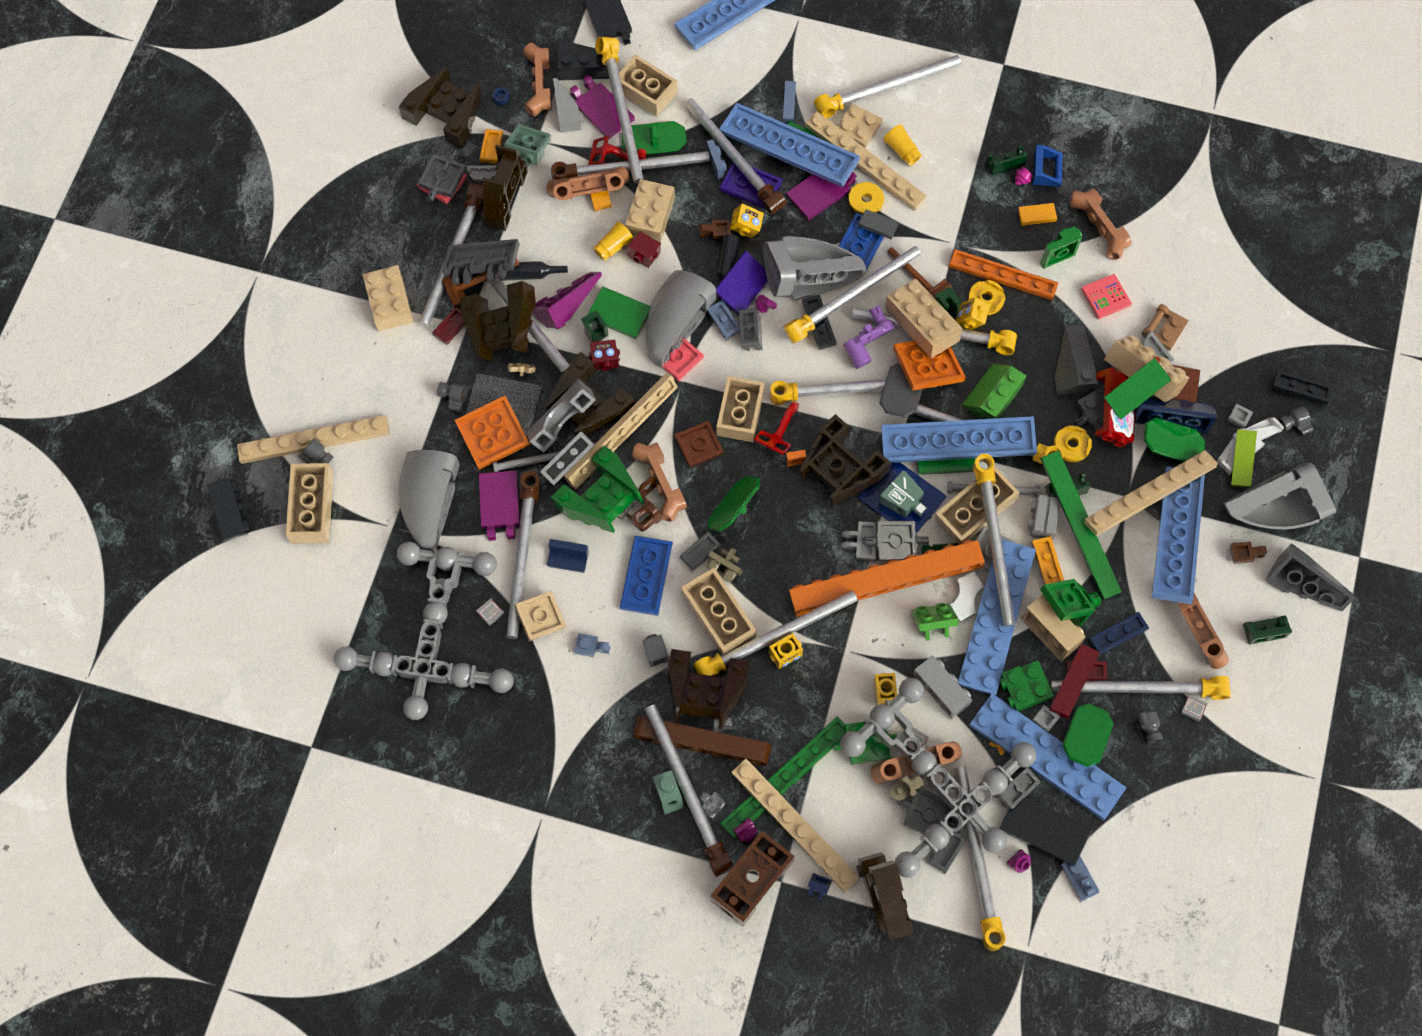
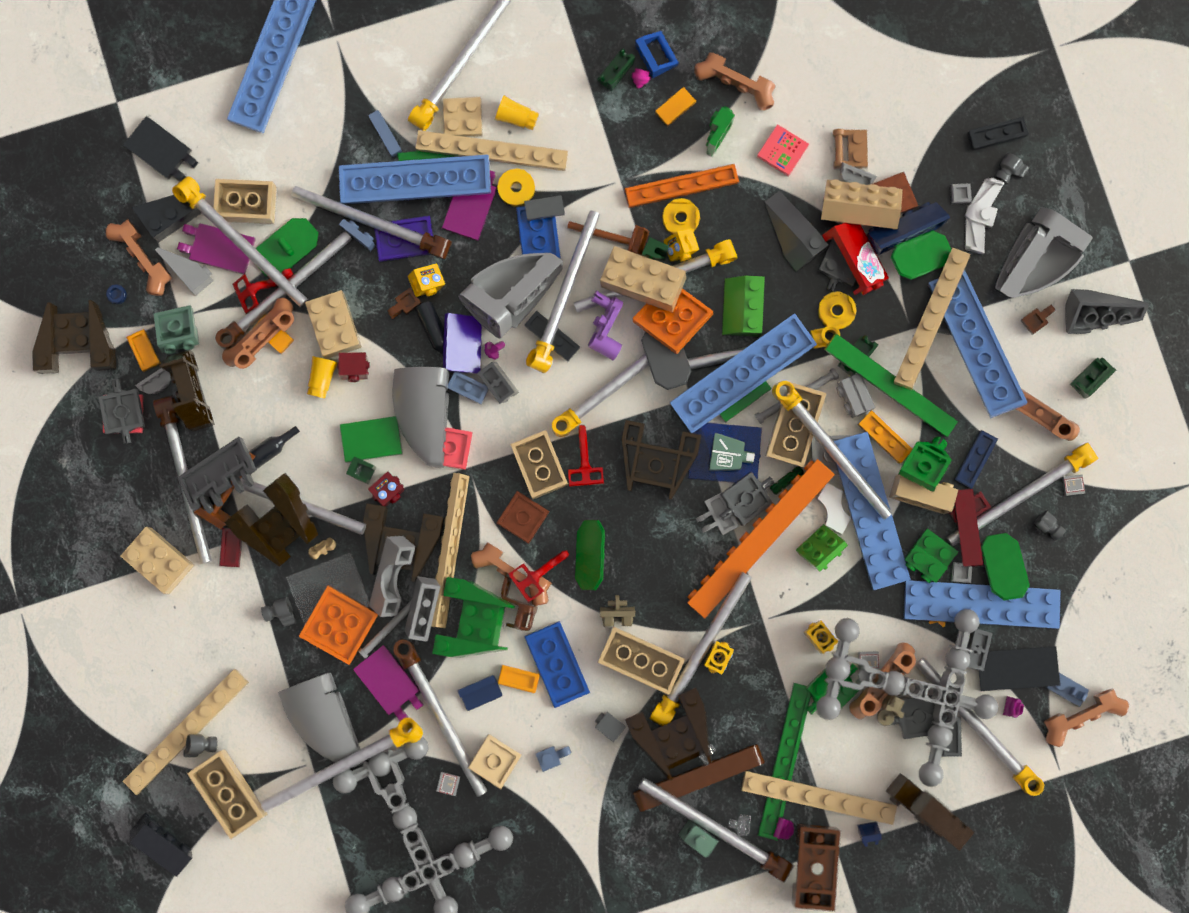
camera: 35 degrees left, 15 degrees up
(486, 541) = (397, 737): none -> flat silver piece
(560, 308) = (317, 466): magenta wedge -> none
(606, 566) = (518, 678): none -> light orange tile
(676, 489) = (534, 576): none -> red piece
(699, 551) = (588, 613): dark grey tile -> none
(795, 458) = (616, 476): orange tile -> none
(943, 686) = (864, 601): light grey brick -> none
(1109, 910) = (1106, 702): none -> nougat plate
(1138, 388) = (870, 233): green piece -> none
(1244, 458) = (989, 234): lime tile -> none

